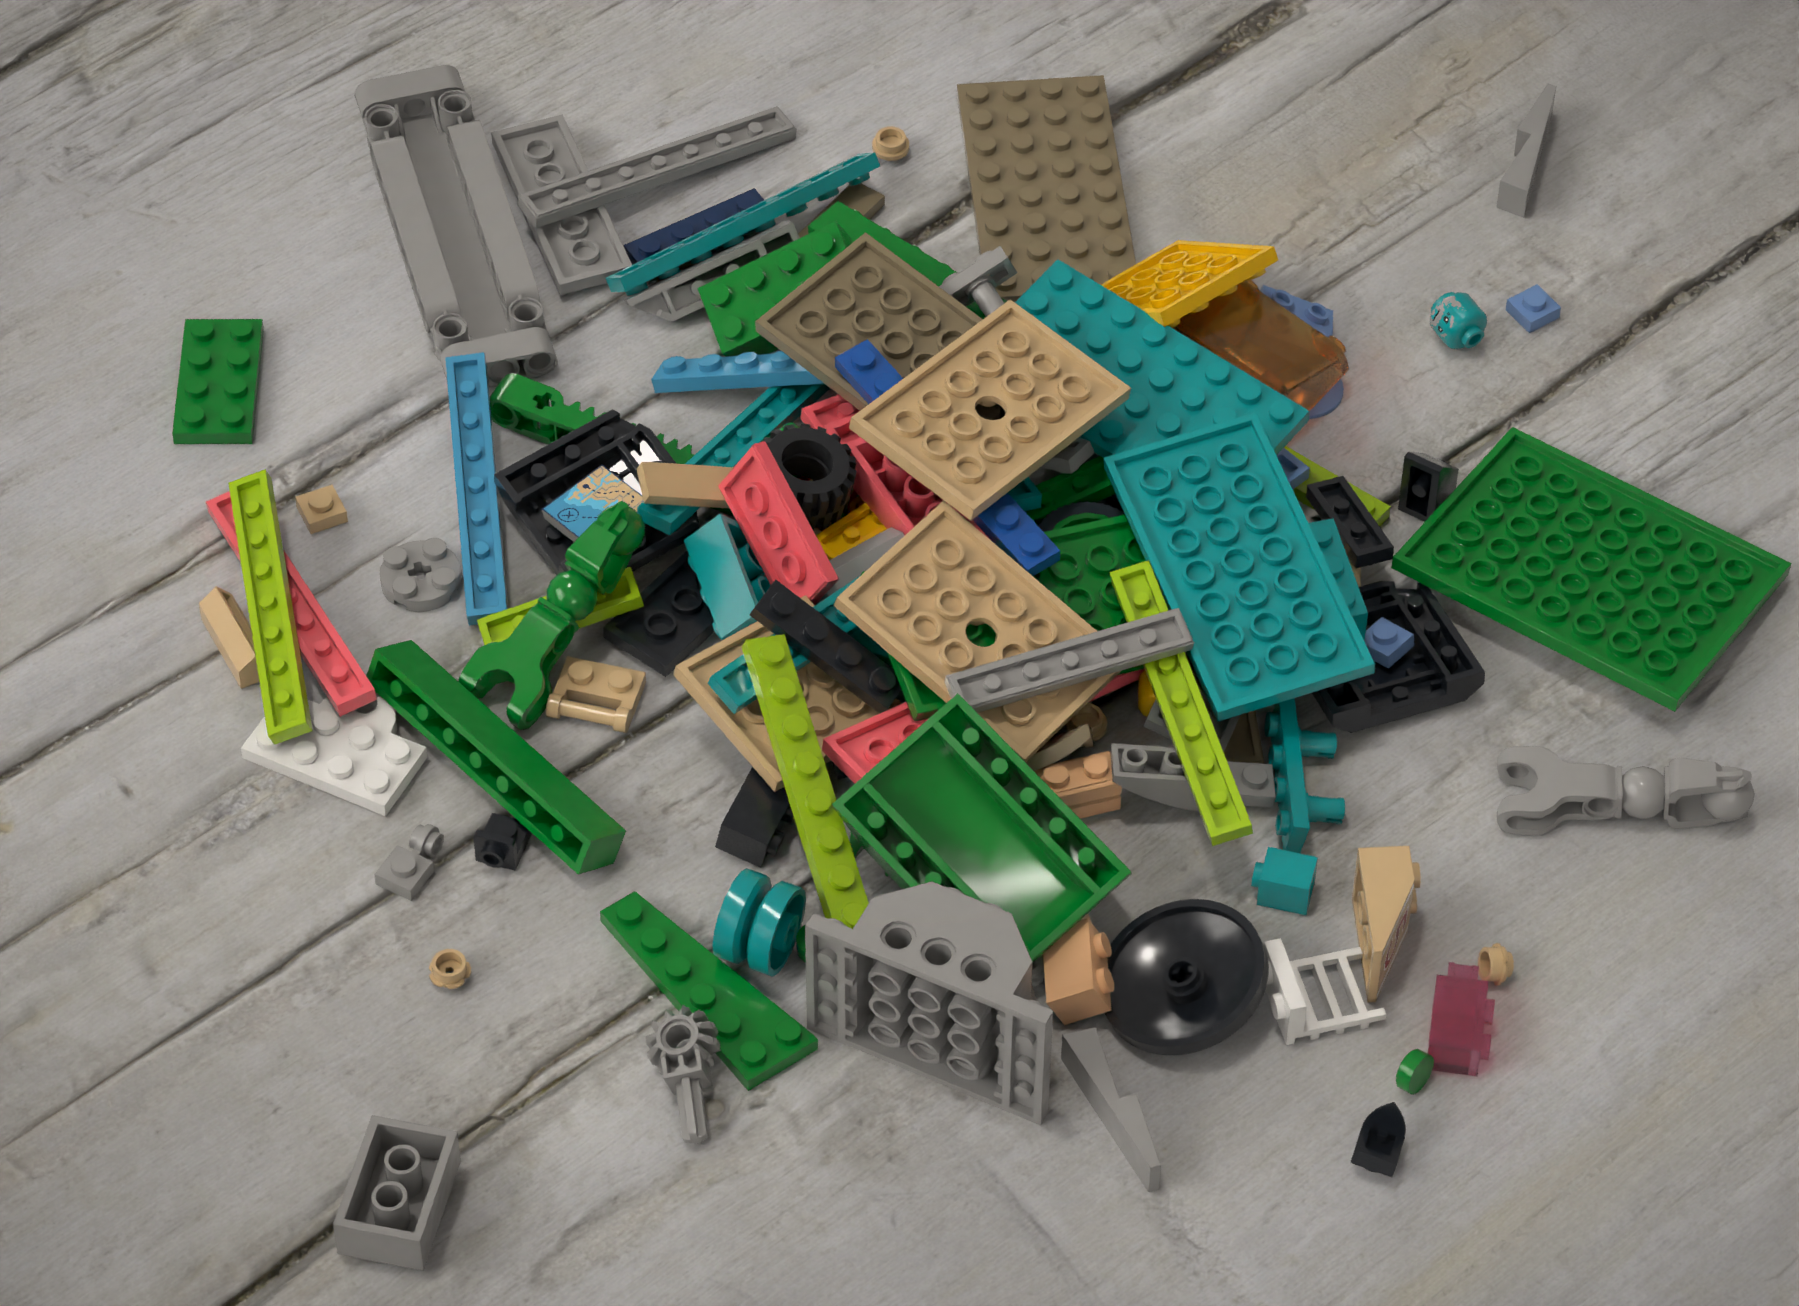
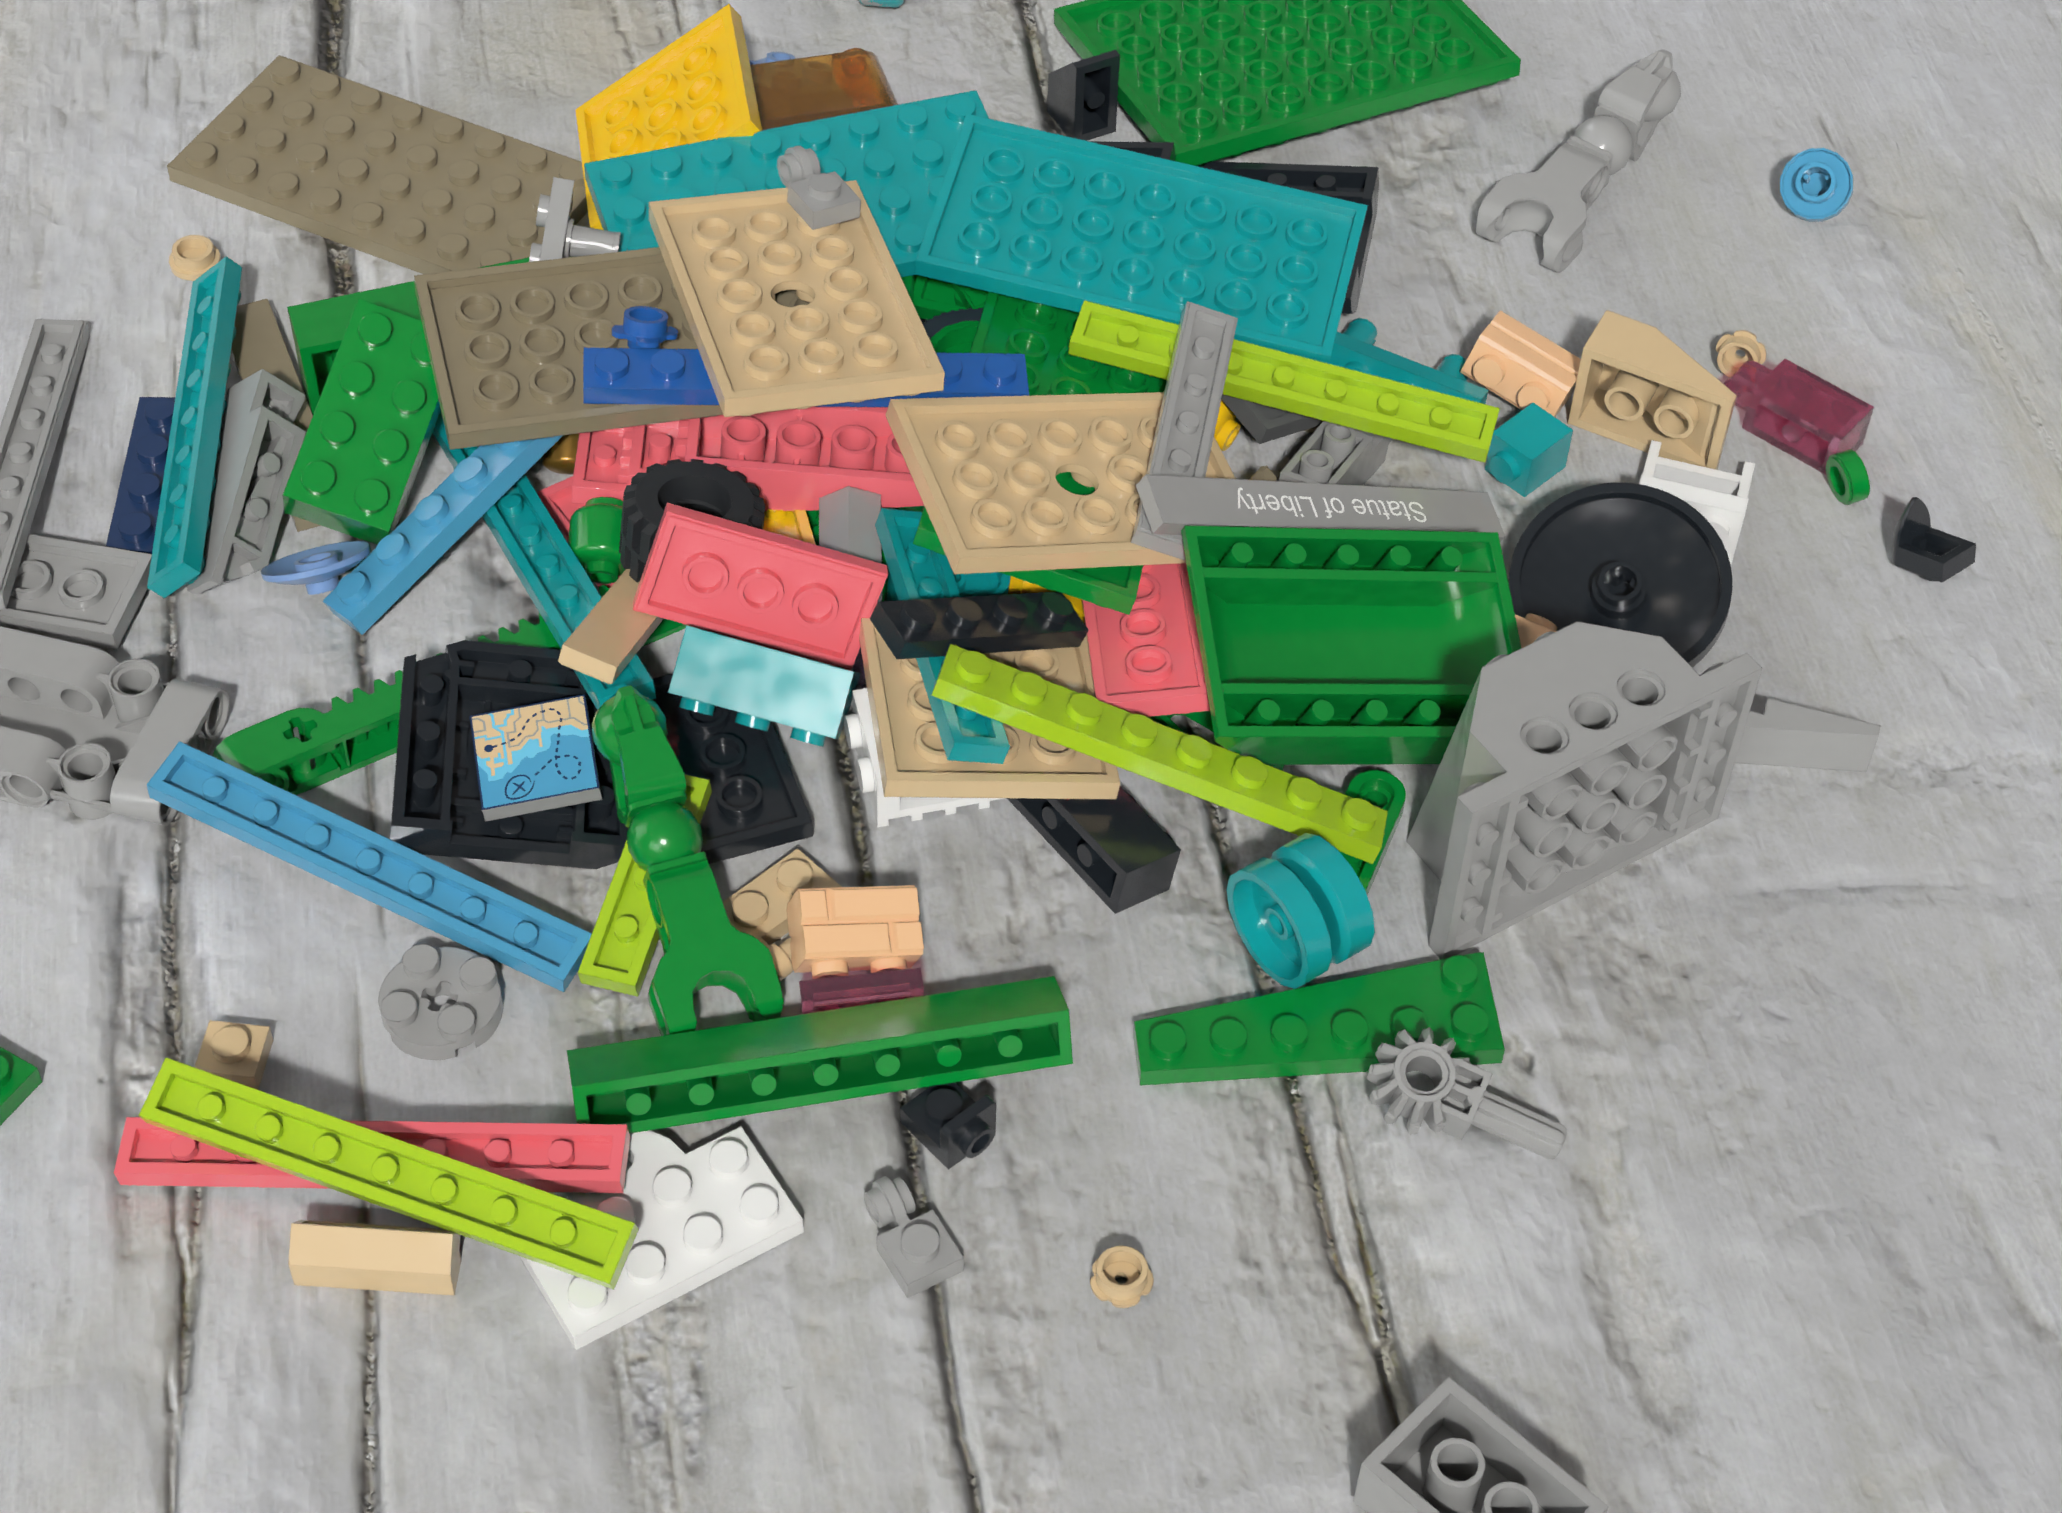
camera: 60 degrees left, 0 degrees up
(547, 743) = (839, 992): none -> clear pink plate
(592, 723) = (854, 929): none -> light nougat brick
(683, 339) = (317, 566): none -> medium blue dish
(907, 356) = (645, 327): none -> blue plate
(1082, 777) = (1205, 501): none -> light grey tile
(1089, 376) = (816, 196): none -> light grey plate
(1349, 825) = (1522, 365): none -> light nougat brick
(1719, 936) = (1816, 185): none -> dark azure plate

